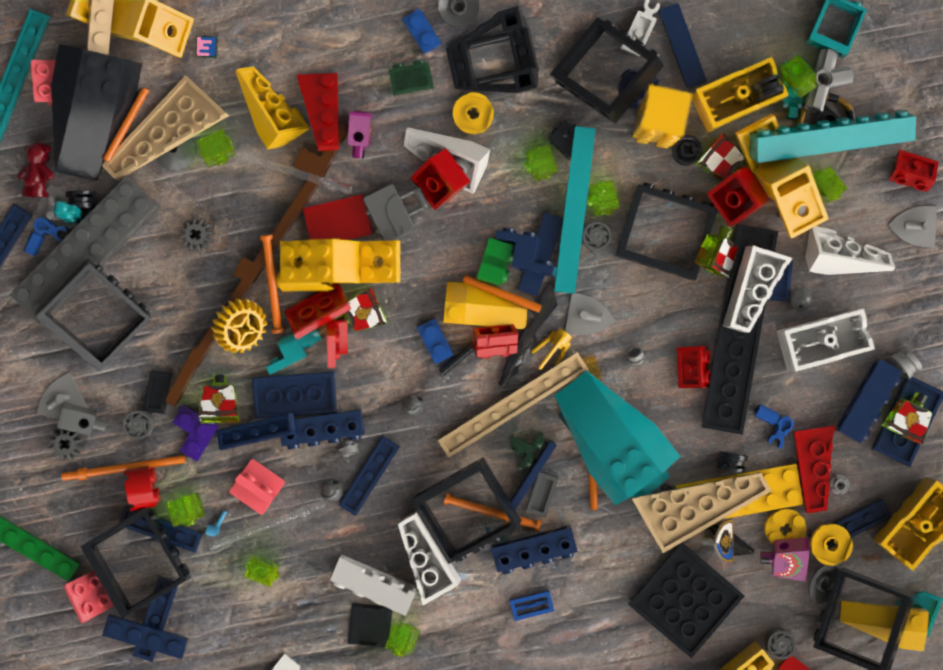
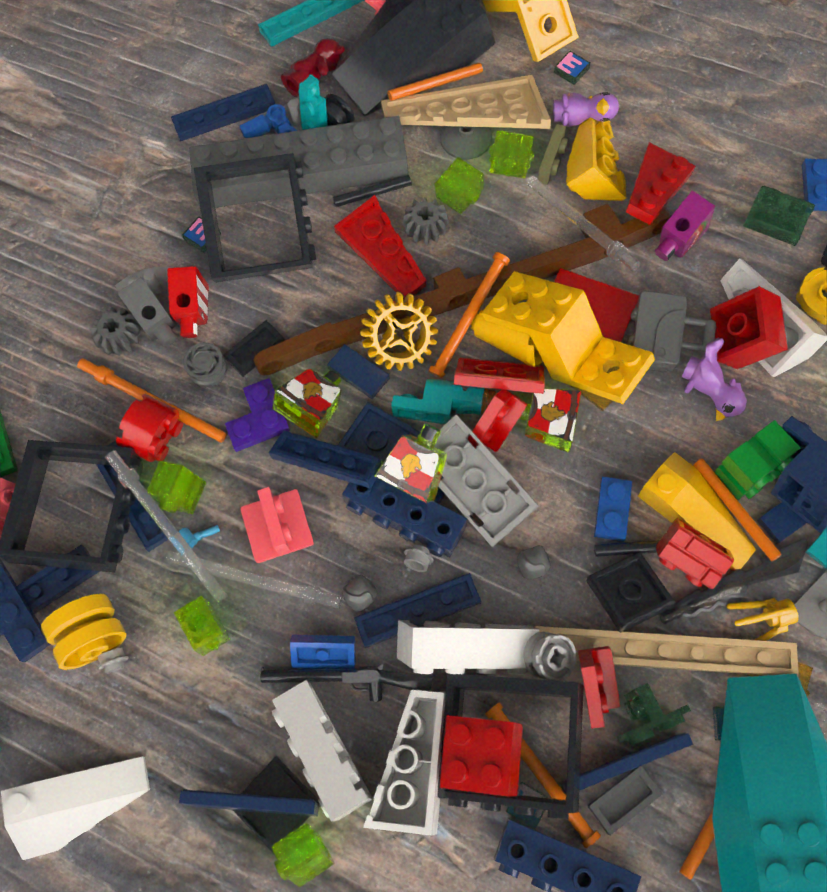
camera: 40 degrees right, 20 degrees down
(59, 345) = (195, 235): none -> tile
(91, 388) = (188, 299): none -> red torso
(145, 234) = (370, 191): none -> black bar
(160, 527) = (130, 479): none -> clear bar
(181, 271) = (376, 242): none -> red wing
(200, 194) = (459, 185): none -> clear neon green head
(205, 621) = (83, 631): none -> yellow wheel
(228, 621) = (112, 660): none -> light grey plate
(230, 362) = (358, 371): none -> dark blue tile
(235, 91) = (575, 108): none -> medium lavender animal
(240, 121) = (550, 161): none -> olive plate
(311, 404) = (415, 464): none -> torso
(336, 535) = (322, 651): none -> blue plate
(349, 385) = (479, 484): none -> light grey piece
(356, 636) = (246, 802): none -> dark blue tile
(370, 528) = (373, 675): none -> black piece
(410, 479) = (463, 647): none -> white wedge
(436, 225) = (708, 378): none -> medium lavender animal
(456, 455) = (540, 651): none -> light grey wheel
(456, 531) = (481, 756): none -> red brick
(475, 384) = (630, 592): none -> black tile
(489, 449) = (599, 683): none -> red bracket

